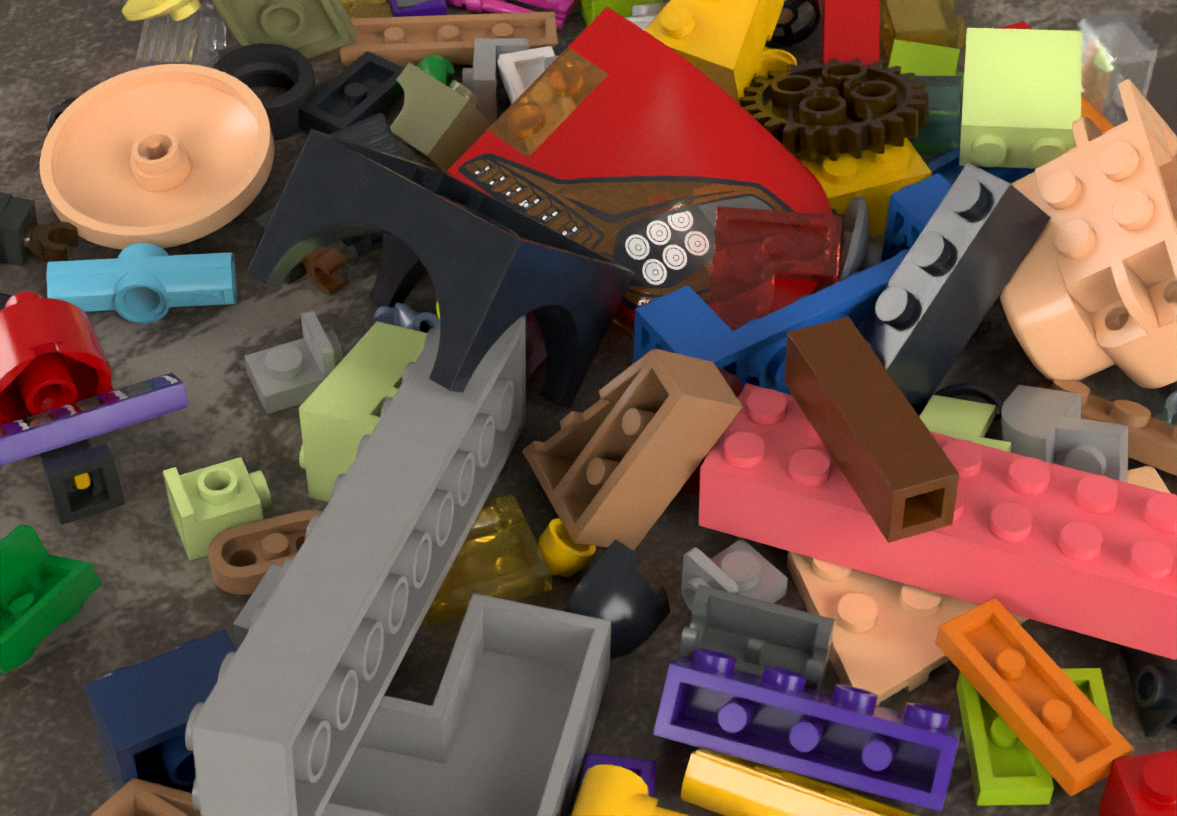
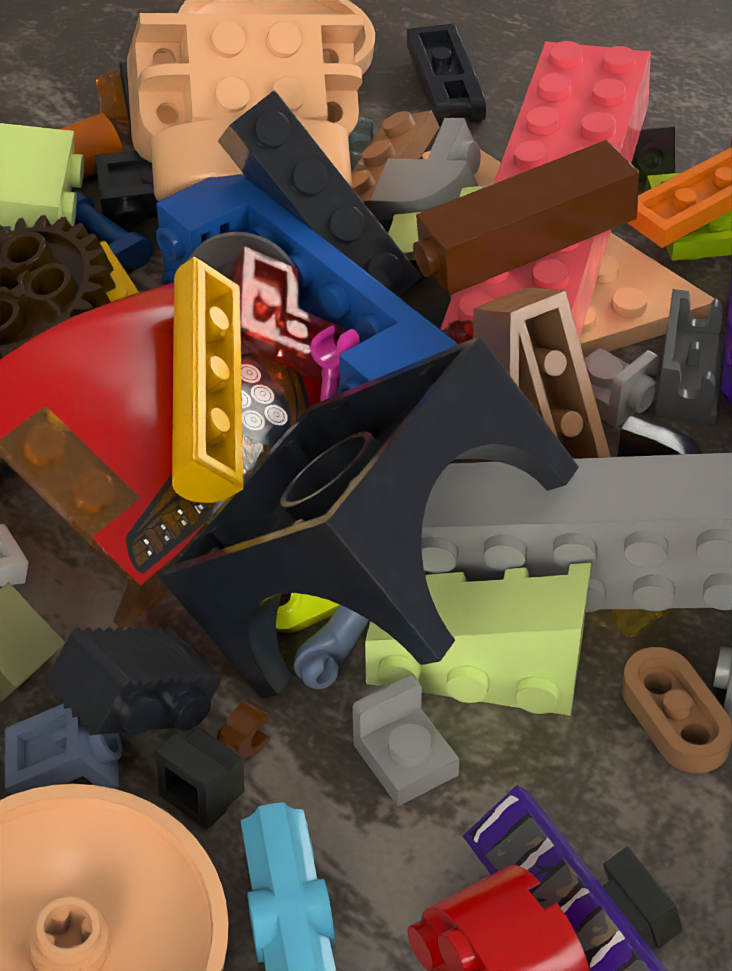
camera: 95 degrees left, 0 degrees up
(213, 501) = (633, 770): yellowish green brick -> none
(644, 177) = (206, 385): none -> yellow brick
(718, 293) = (327, 355): none -> dark pink hand

